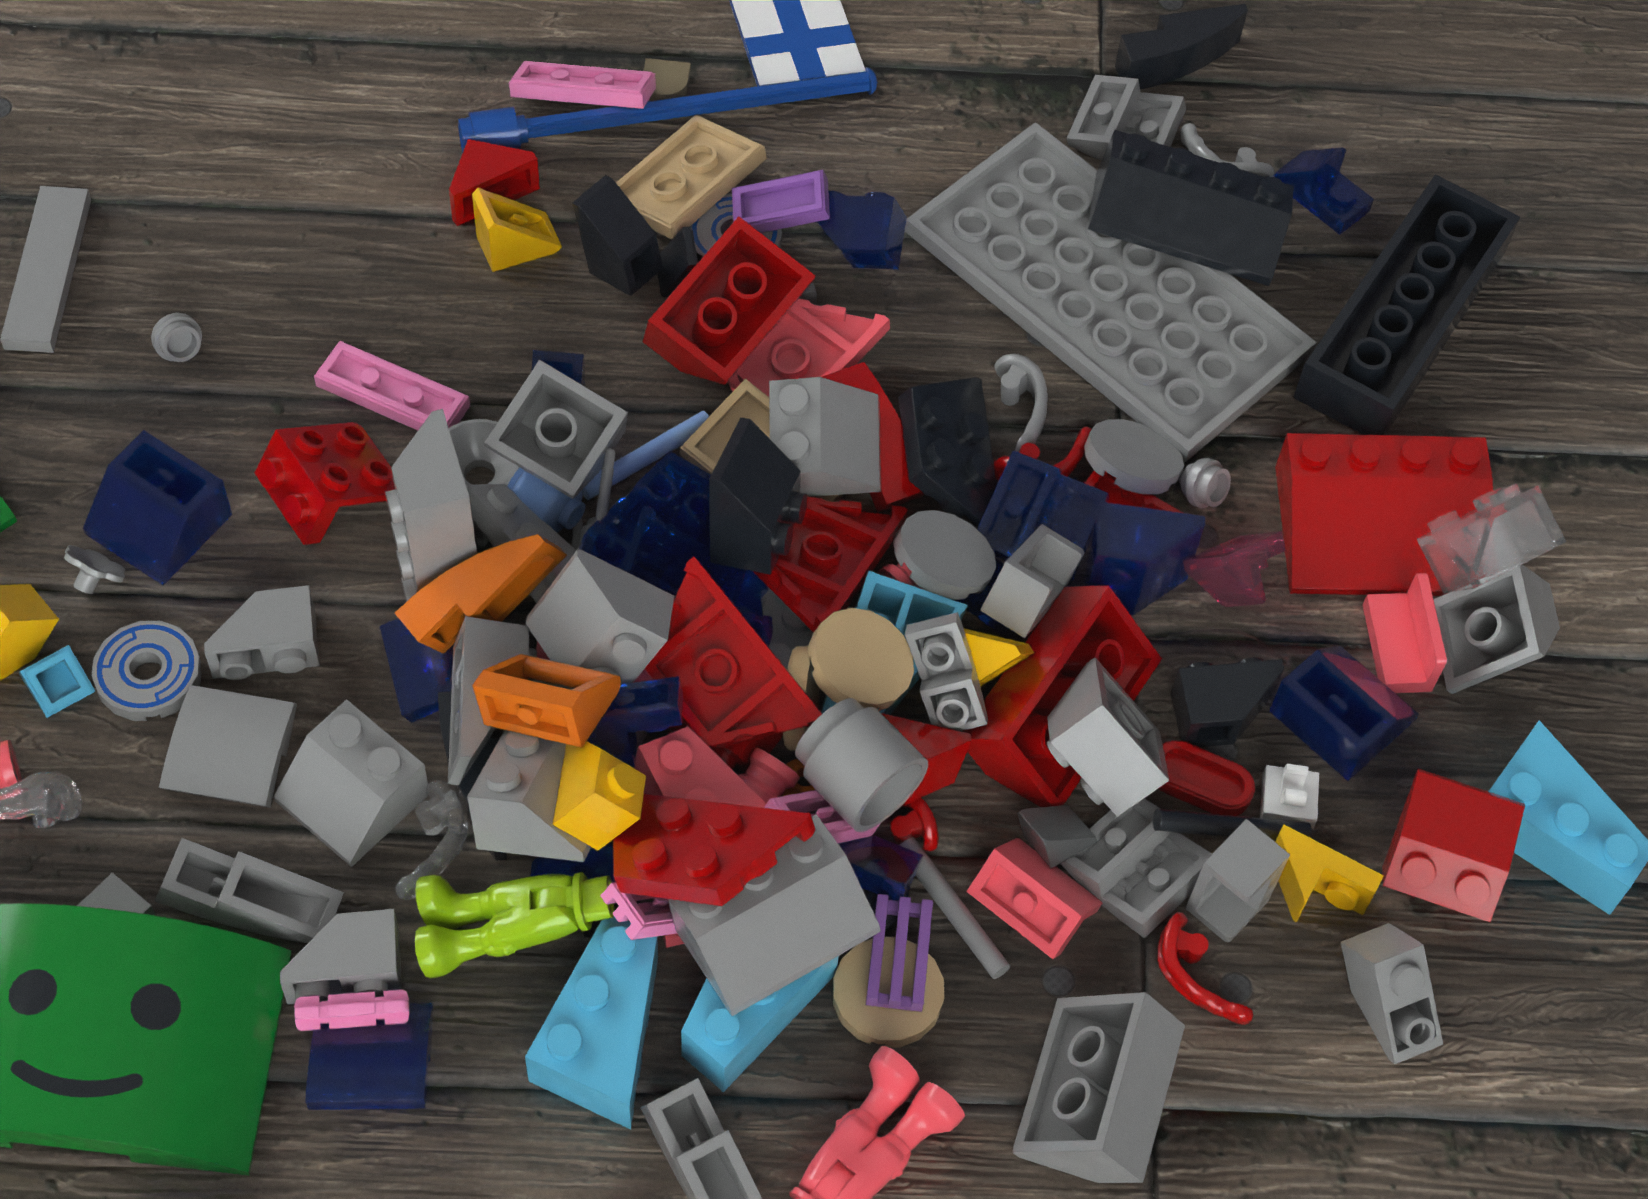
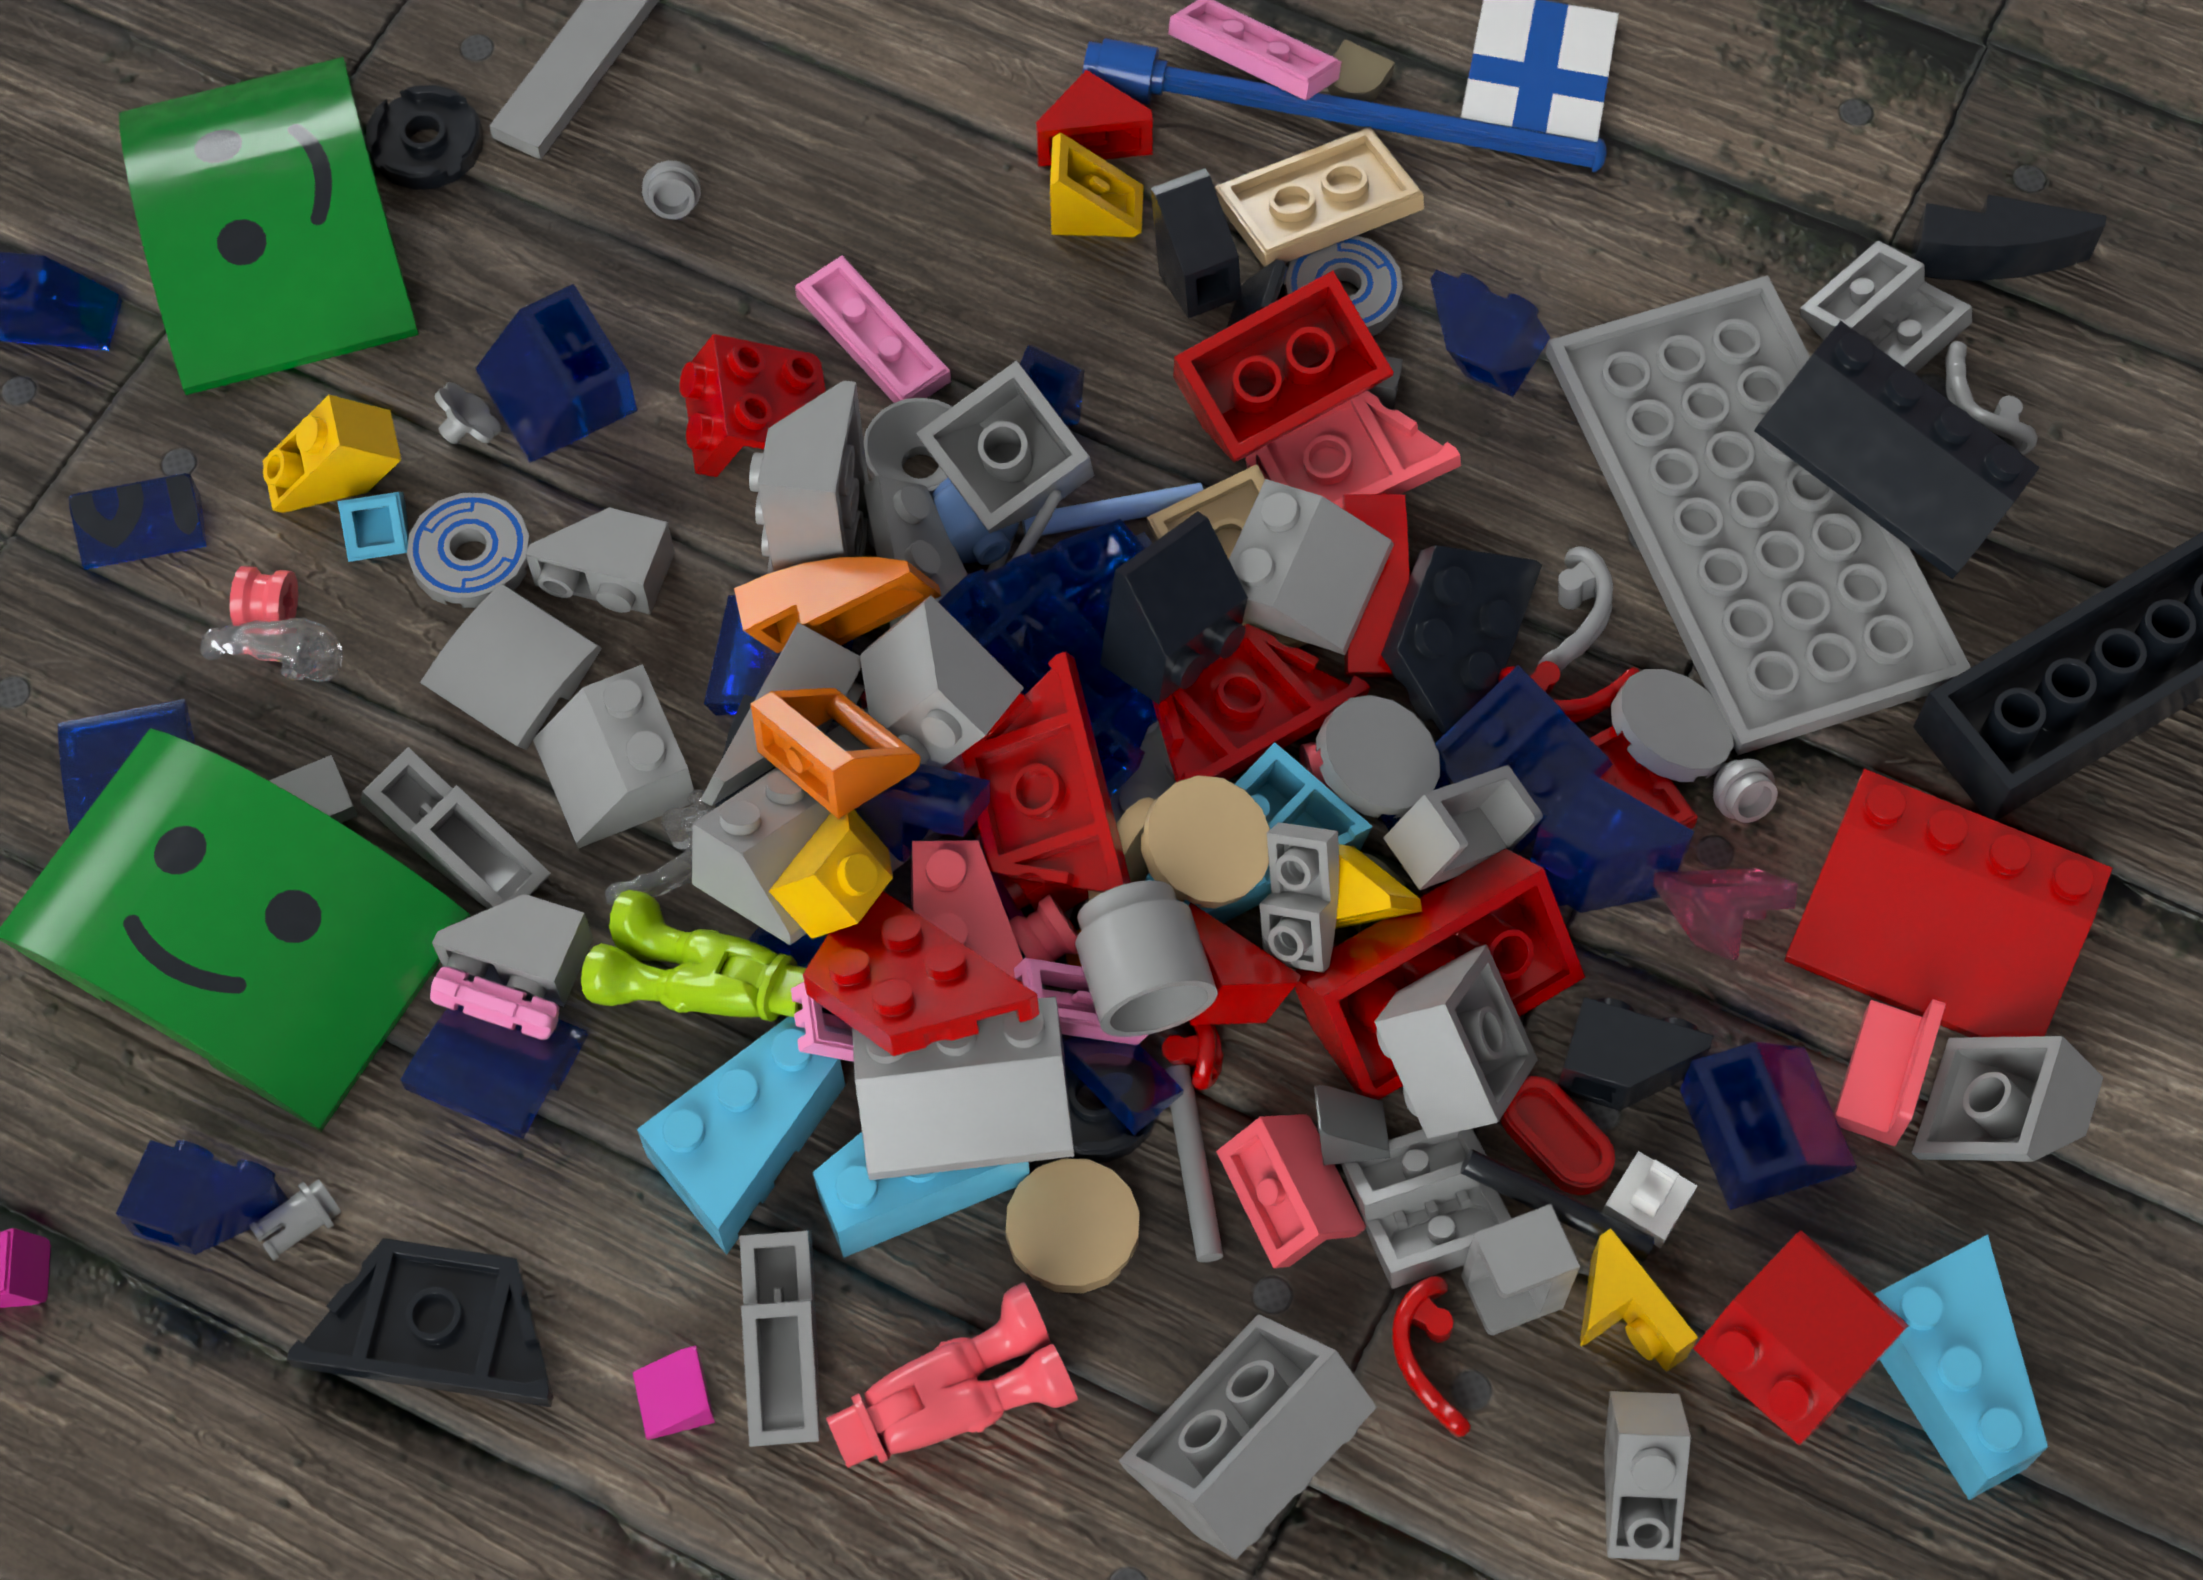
camera: 30 degrees right, 5 degrees up
(783, 201) = (1405, 270): medium lavender tile -> none
(903, 909) = (1129, 1141): medium lavender tile -> none
(1324, 189) = (2092, 484): clear blue slope -> none
(1491, 540) = (2042, 993): clear slope -> none

